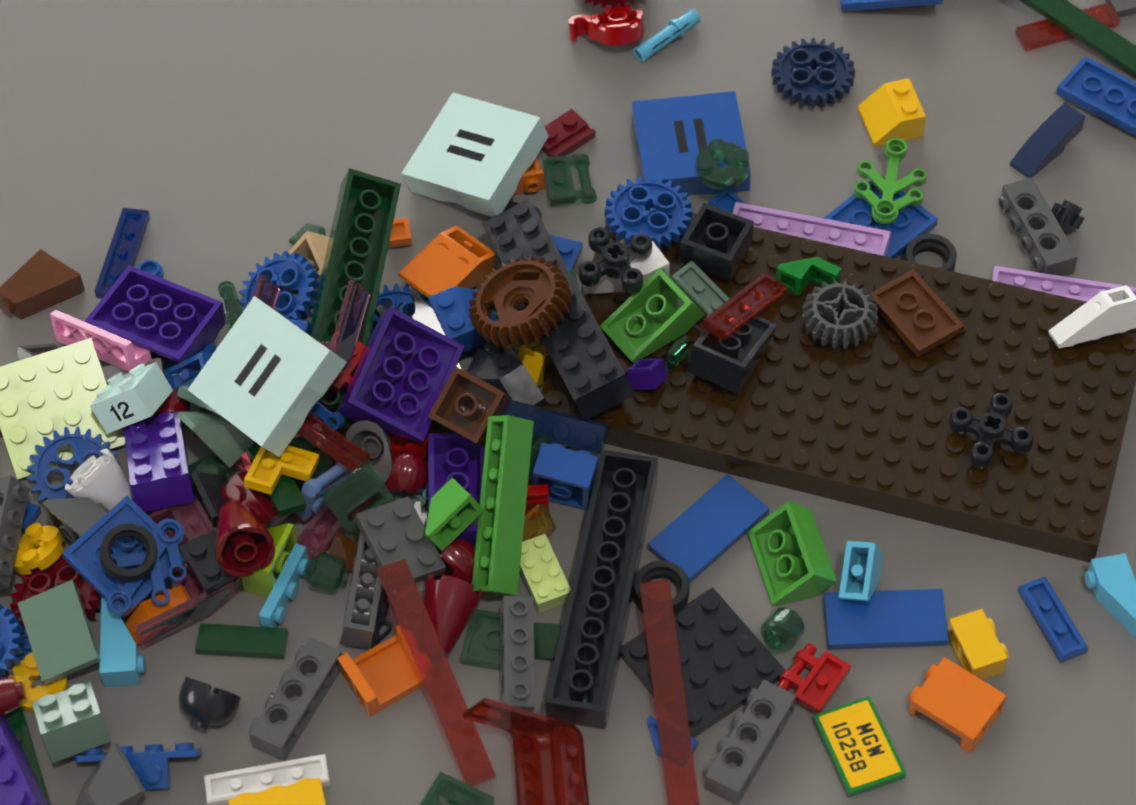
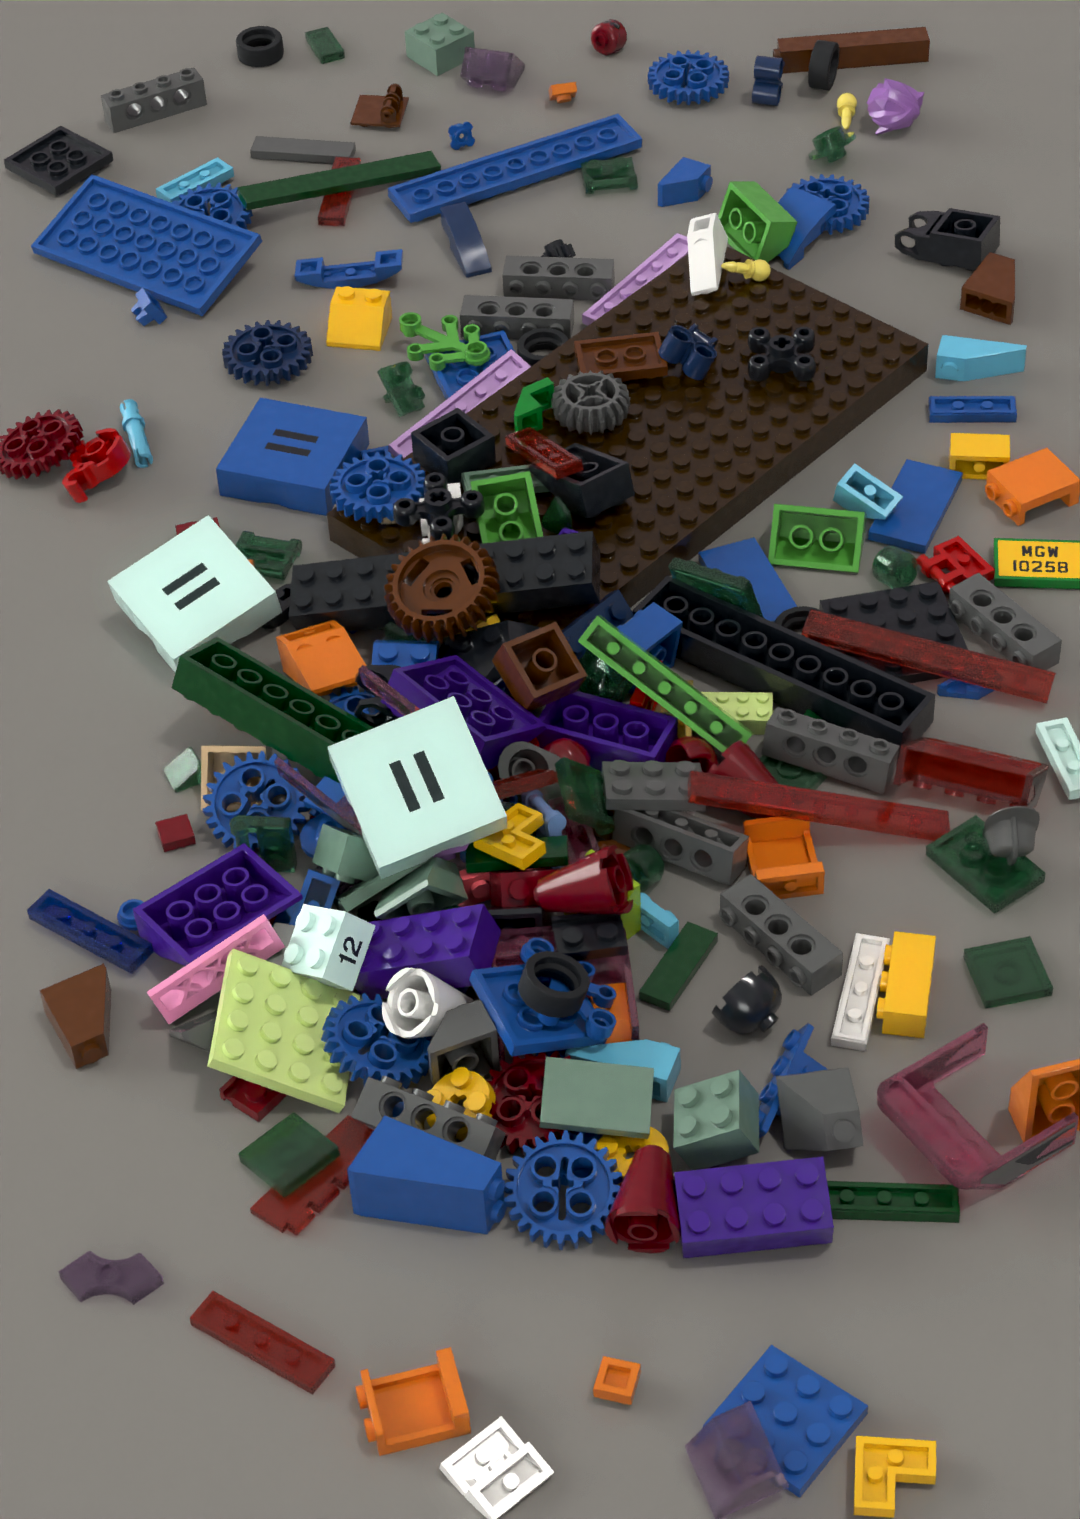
camera: 65 degrees left, 10 degrees down
(243, 260) = (175, 832): none -> dark red tile
(450, 513) = (653, 721): bright green slope -> none
(656, 503) = (717, 583): none -> clear green plate
(722, 152) = (337, 424): clear green plate -> none
(811, 180) = (401, 389): none -> clear green hips
(953, 79) = (354, 275): none -> blue slope
(955, 360) = (689, 348): none -> dark blue piece
(962, 222) = (517, 314): none -> dark grey brick
(1114, 369) = (757, 270): none -> light yellow bar

